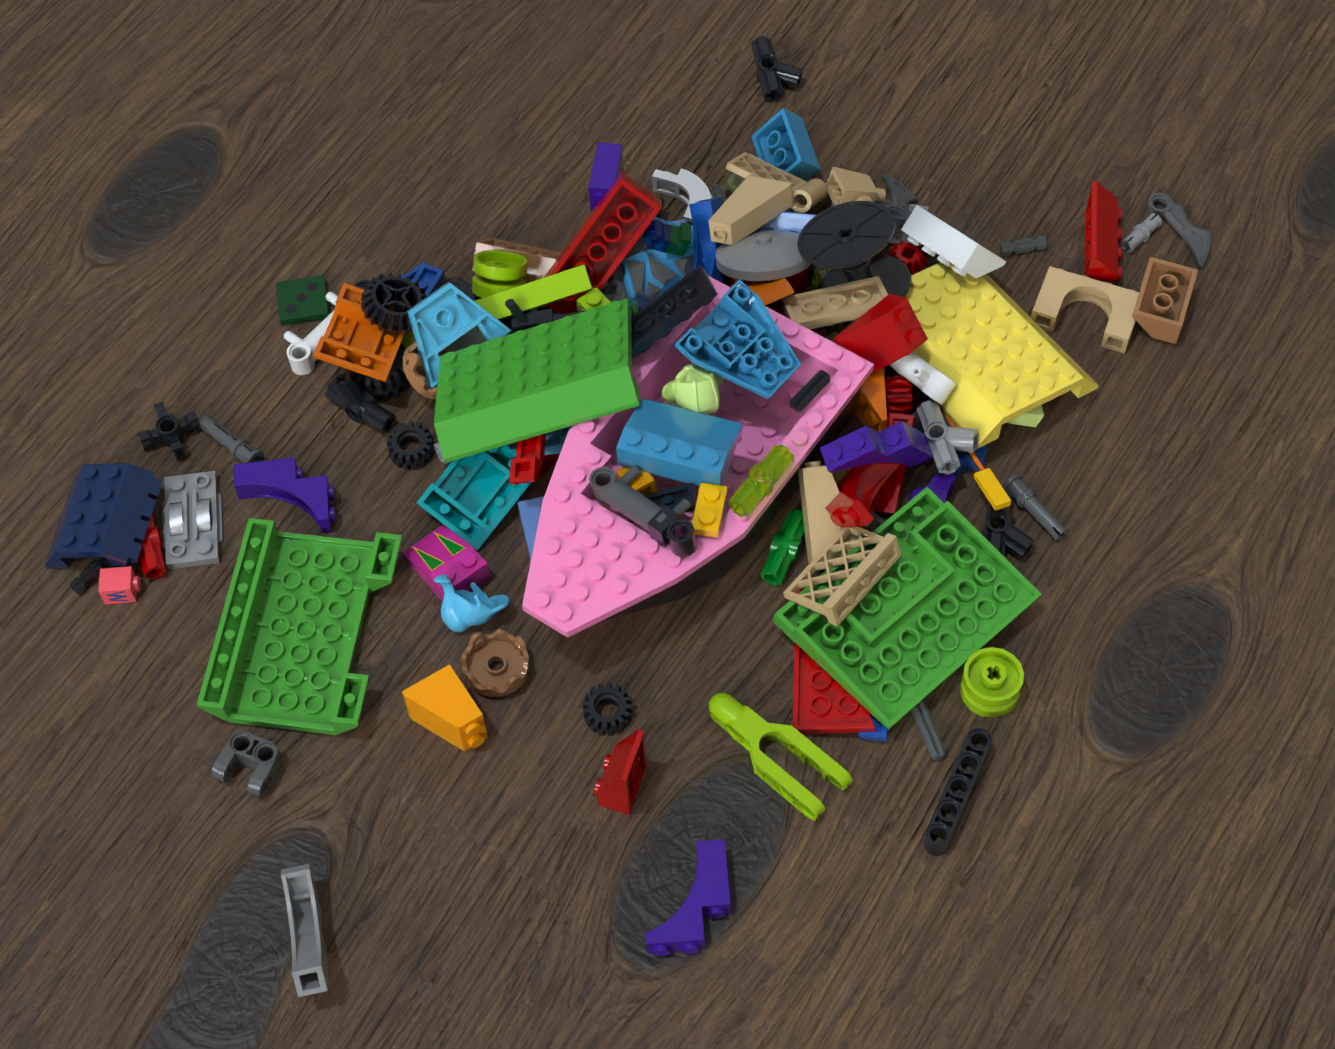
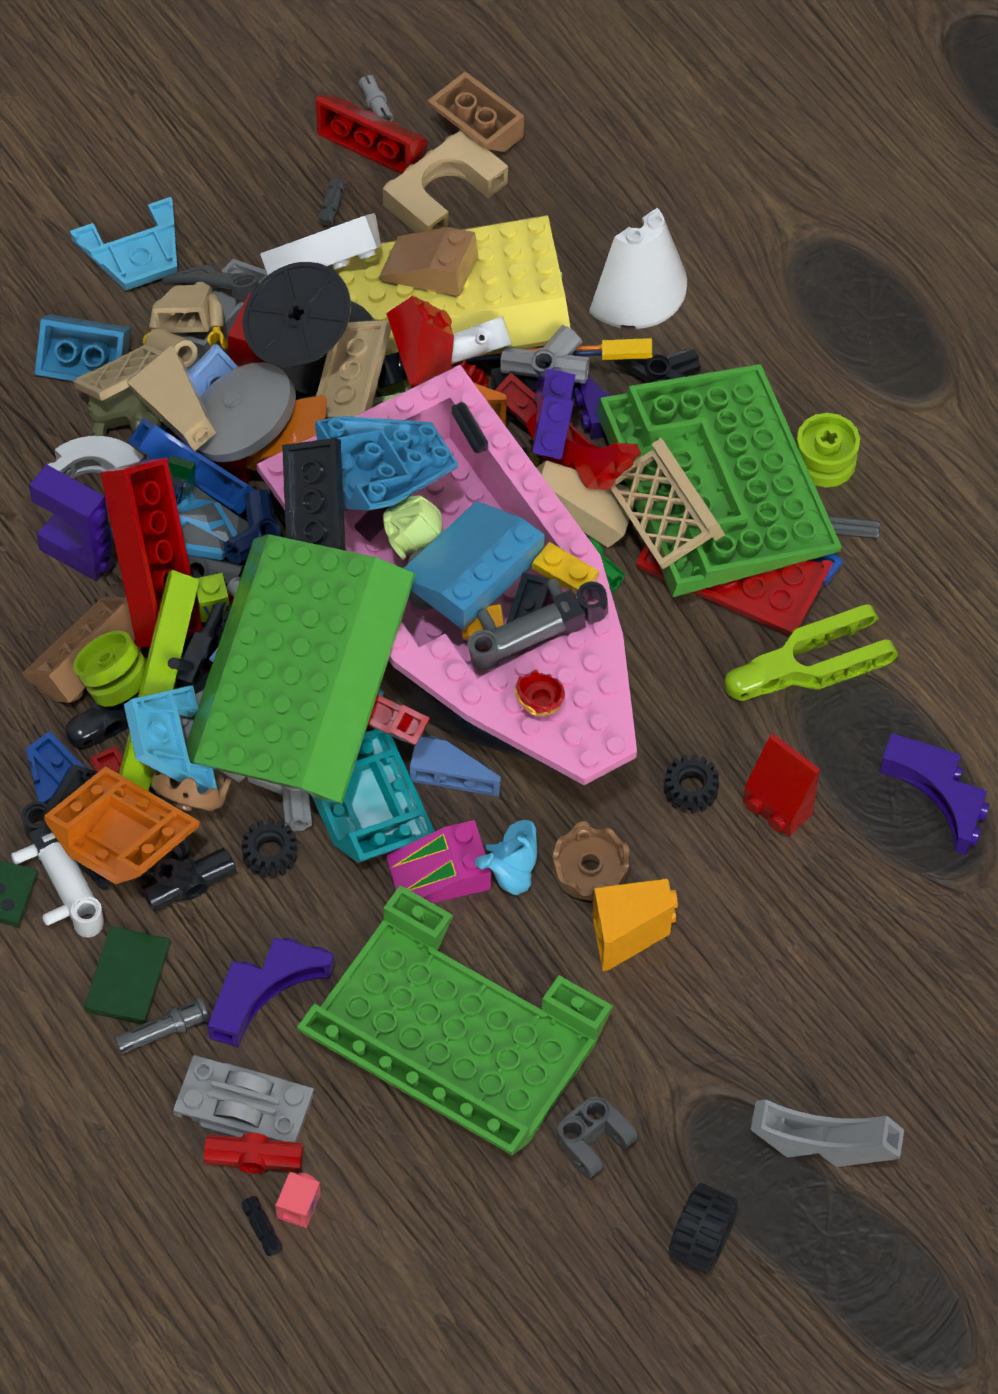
camera: 70 degrees left, 0 degrees up
(105, 515) = (200, 1186): dark blue slope -> none
(162, 432) = (136, 1083): black pin -> none
(182, 870) = (703, 1228): none -> black tyre
(267, 404) = (127, 975): none -> dark green tile
(394, 298) = (103, 775): black gear -> none
(573, 534) = (539, 693): none -> red hair
(718, 192) = (118, 428): dark grey axle -> none
(753, 491) = (553, 497): clear neon green piece -> none
(894, 151) = (137, 257): none -> medium azure wing
(953, 802) = (927, 540): black beam -> none
(981, 317) = (432, 260): none -> medium nougat slope
(1027, 499) = (654, 331): dark grey pin -> none
(1081, 474) = (641, 277): none -> white cone
(1195, 237) = (403, 61): dark grey piece -> none

